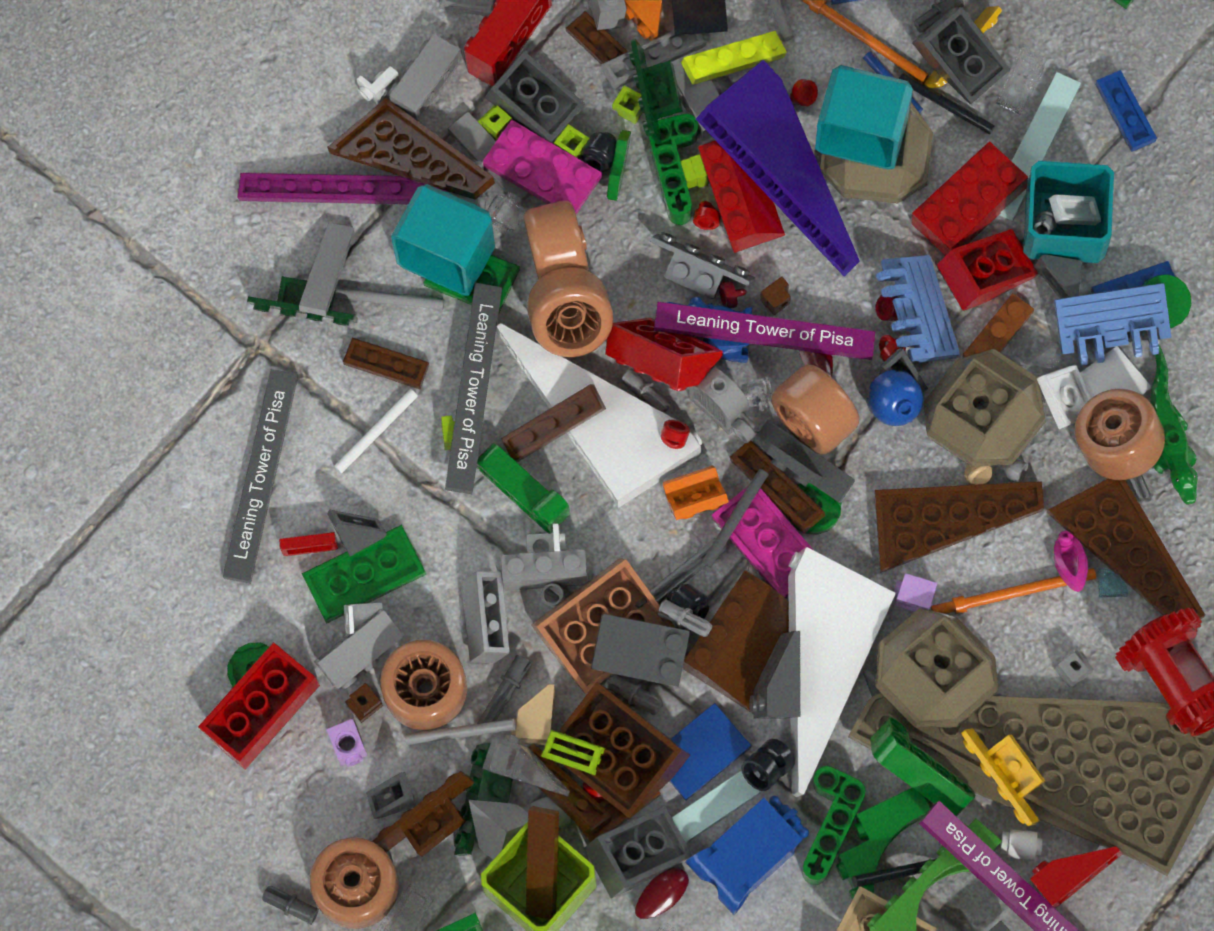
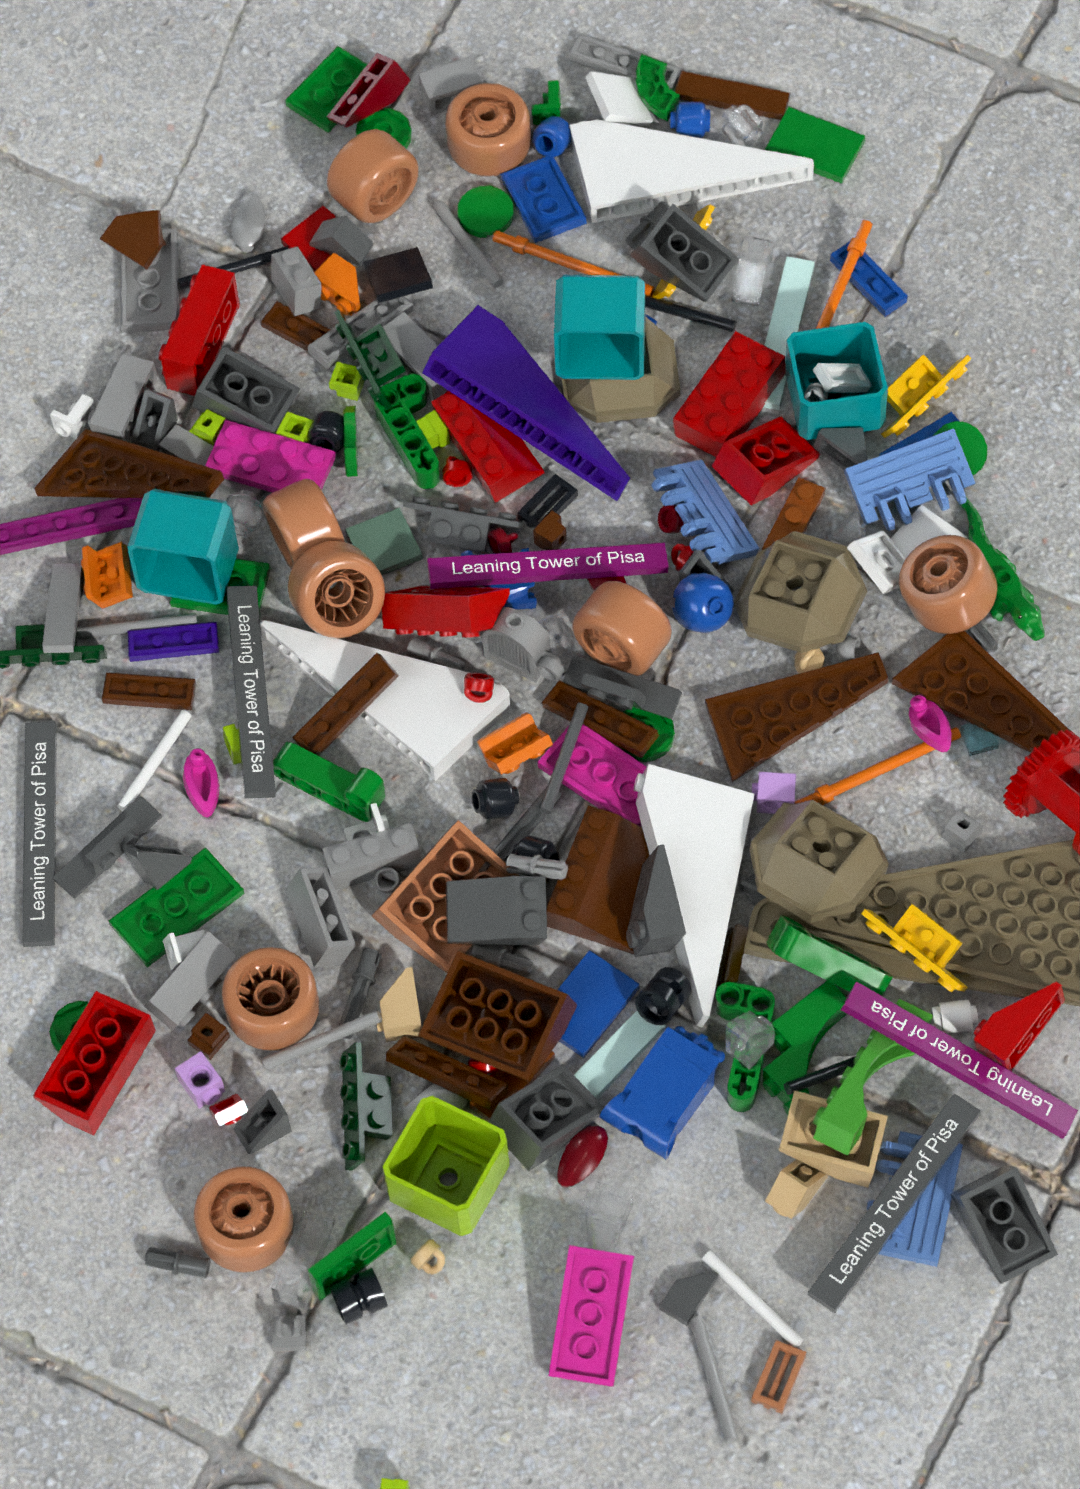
camera: 15 degrees left, 10 degrees down
(308, 544) = (109, 888): red tile -> none
(316, 503) = (107, 847): none -> dark grey bracket
(365, 776) = (228, 1110): none -> plate
(372, 244) = (107, 574): none -> orange bracket
(412, 461) = (201, 782): none -> dark pink arm
(418, 320) = (173, 641): none -> dark purple tile
(429, 820) = (311, 1134): reddish brown bracket -> none
(448, 105) = (154, 420): none -> dark grey slope
(496, 824) = (382, 1122): light grey slope -> none
(520, 763) = (388, 1053): clear slope -> none
(542, 862) = (445, 1140): reddish brown tile -> none
(594, 760) = (476, 1030): lime tile -> none
(626, 269) = (386, 541): none -> sand green tile
(665, 540) = (495, 798): none -> black head
(733, 57) = (445, 310): neon yellow plate -> none
(762, 279) = (572, 493): none -> black tile
(804, 92) = (529, 330): red tile -> none
(833, 827) = (749, 1038): none -> clear slope
(838, 740) = (732, 955): none -> dark brown tile
(1120, 82) = (856, 249): none -> orange bar
(1142, 230) = (915, 387): none -> yellow bracket

